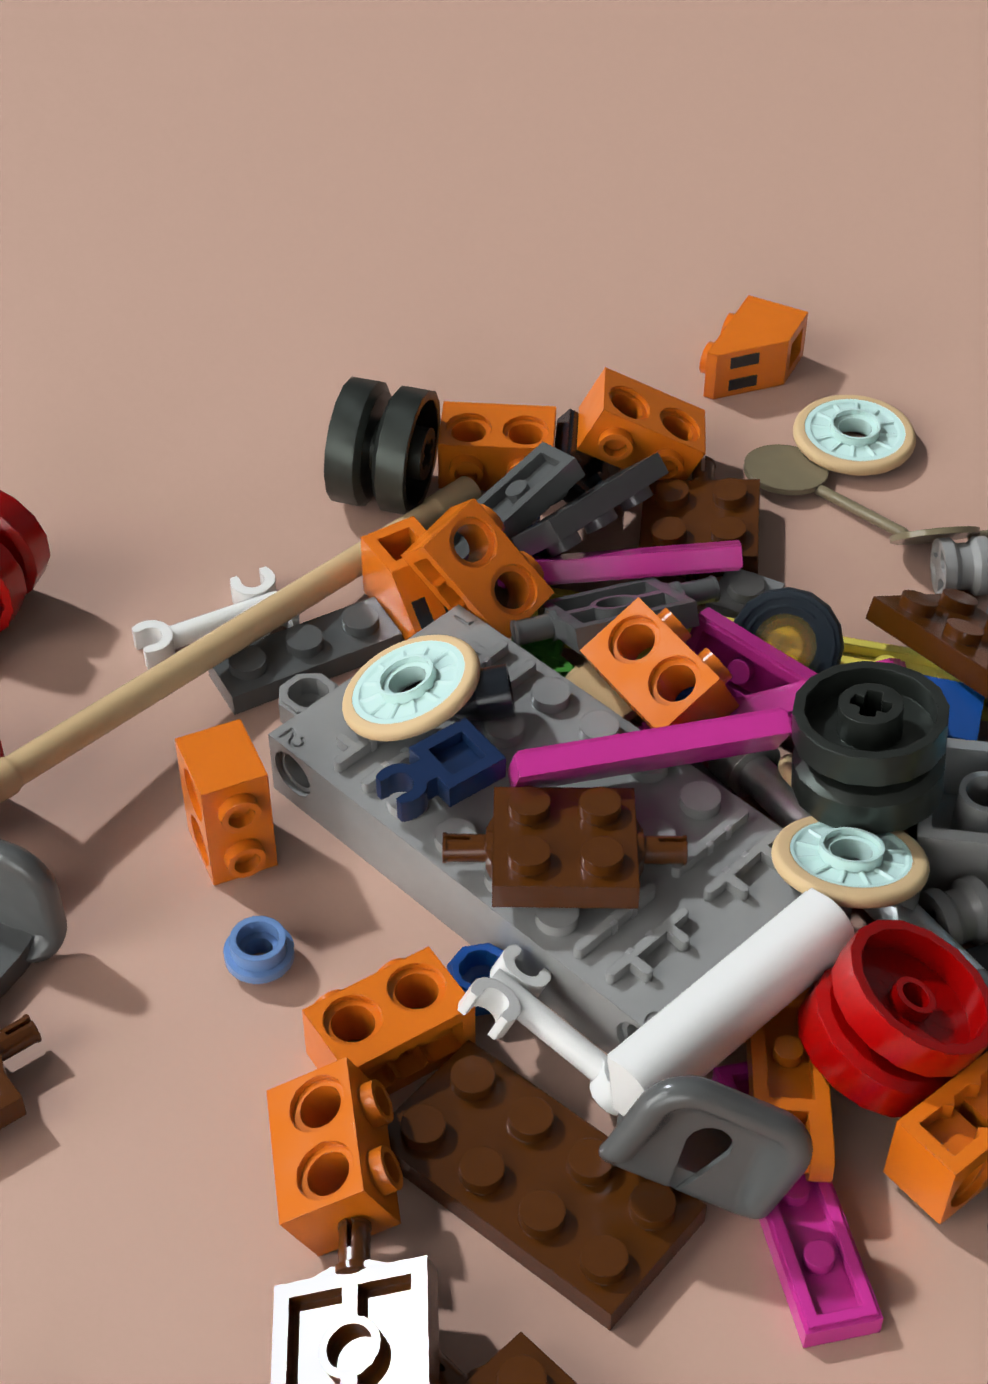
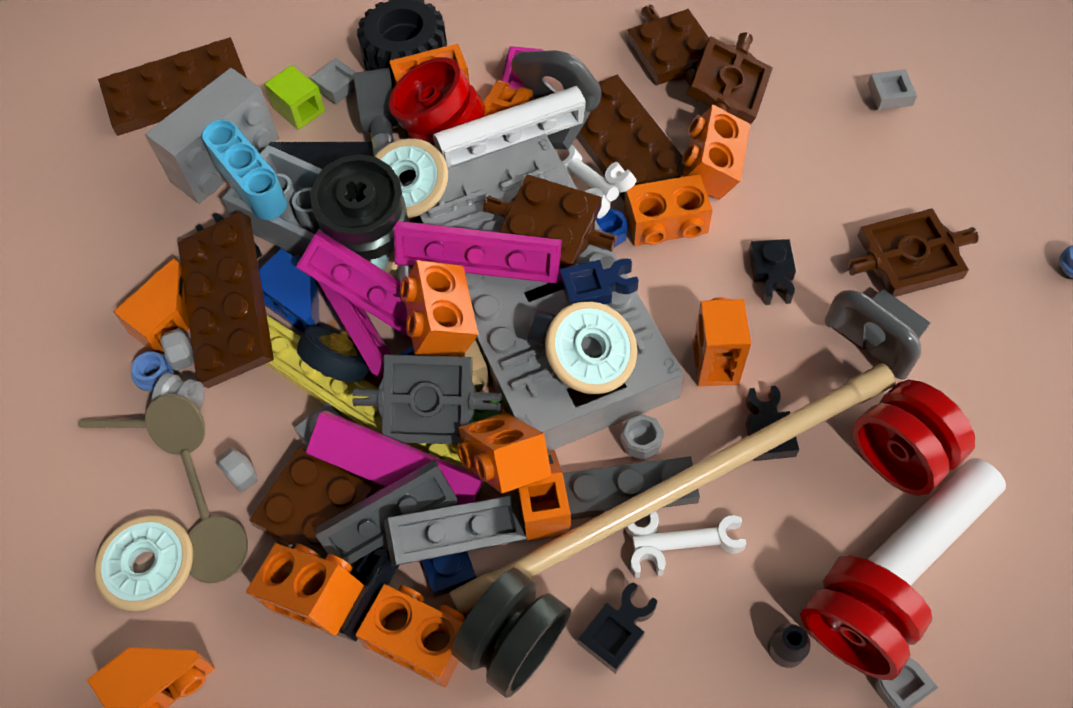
camera: 155 degrees left, 15 degrees up
(66, 560) = (785, 653): none -> black hose
(128, 772) = (766, 414): none -> black plate
(172, 1010) = (773, 264): none -> black plate
(255, 936) = (722, 272): medium blue plate -> none
(267, 510) = (614, 633): none -> black plate
(819, 522) = (237, 469): none -> light grey tile

